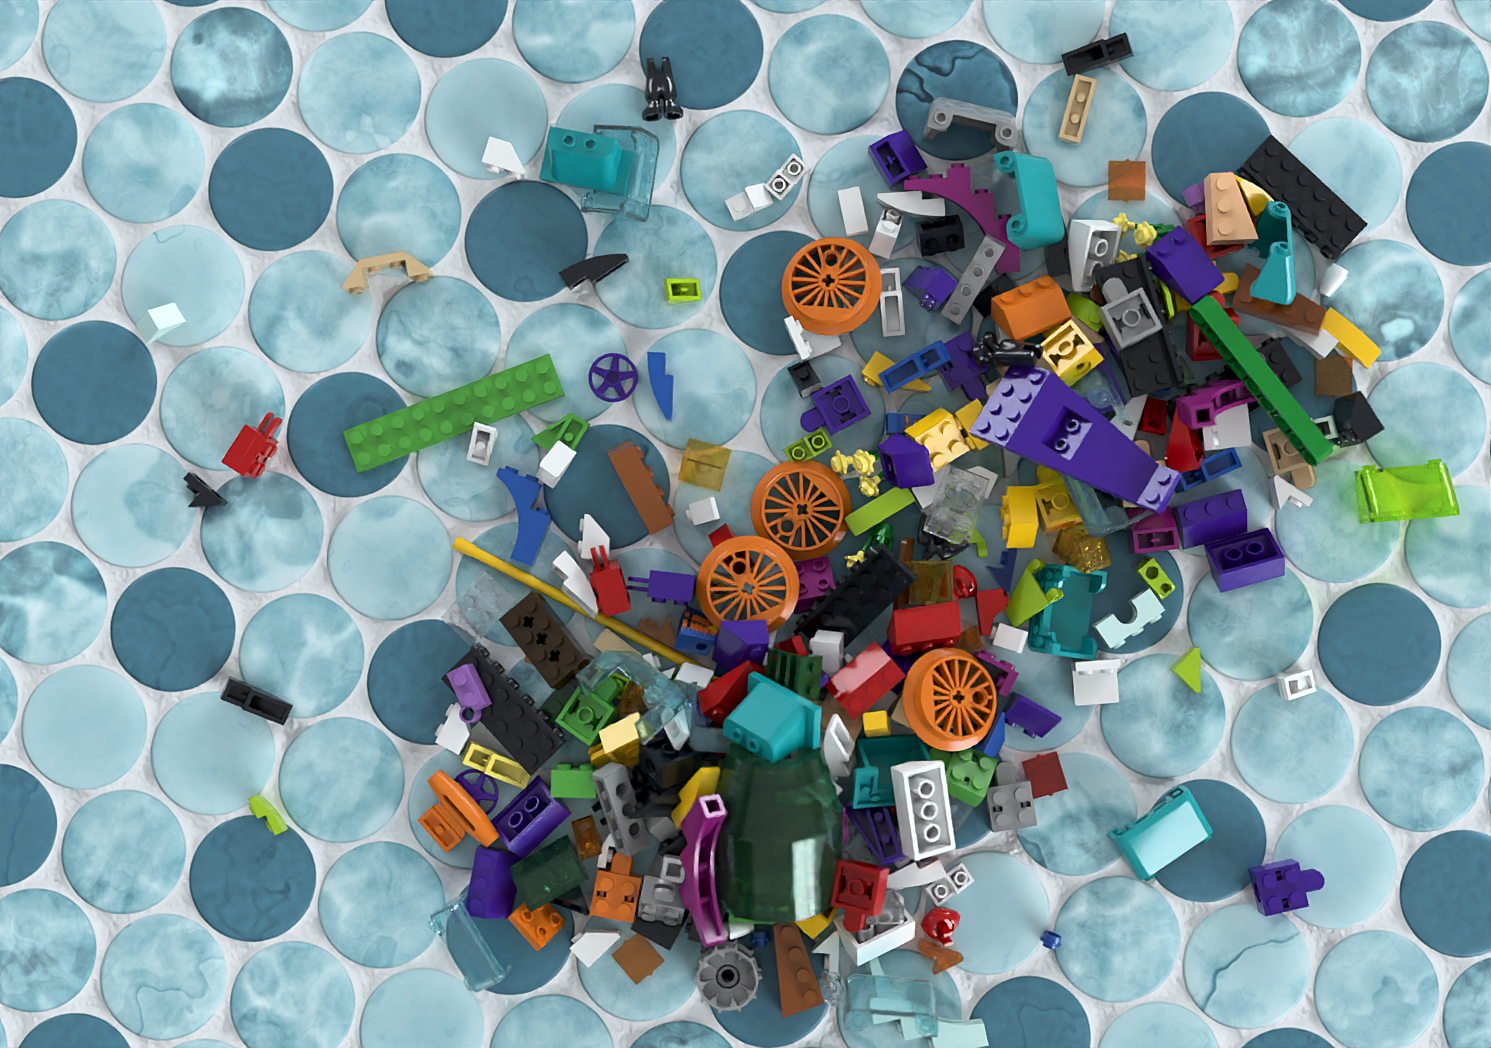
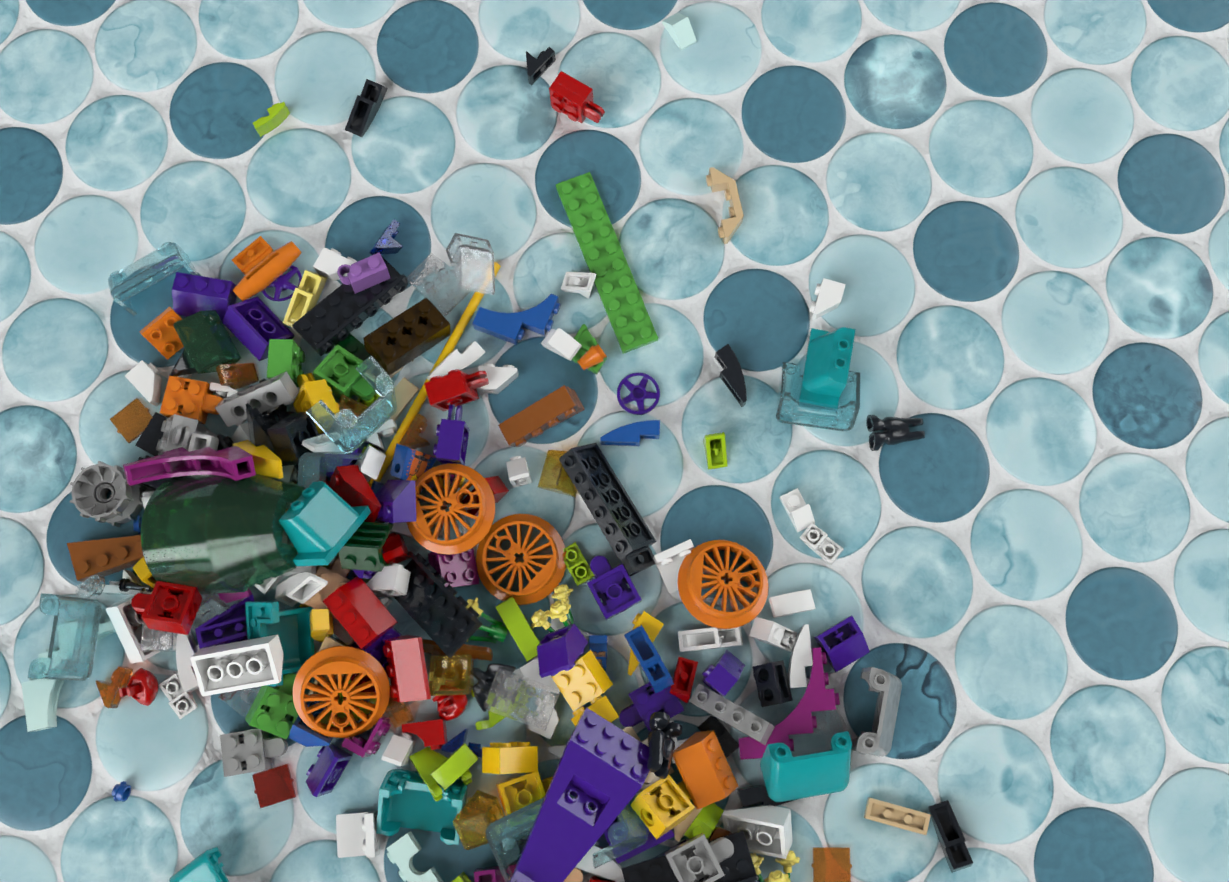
camera: 90 degrees right, 10 degrees down
(428, 671) = (386, 243): none -> clear blue slope
(459, 565) = (472, 263): none -> clear slope
(573, 428) = (592, 357): none -> orange cone
(738, 411) = (607, 499): none -> black bracket
(830, 947) = (126, 585): none -> black piece
(934, 329) = (683, 678): none -> red slope
(1028, 575) = (454, 766): none -> lime slope

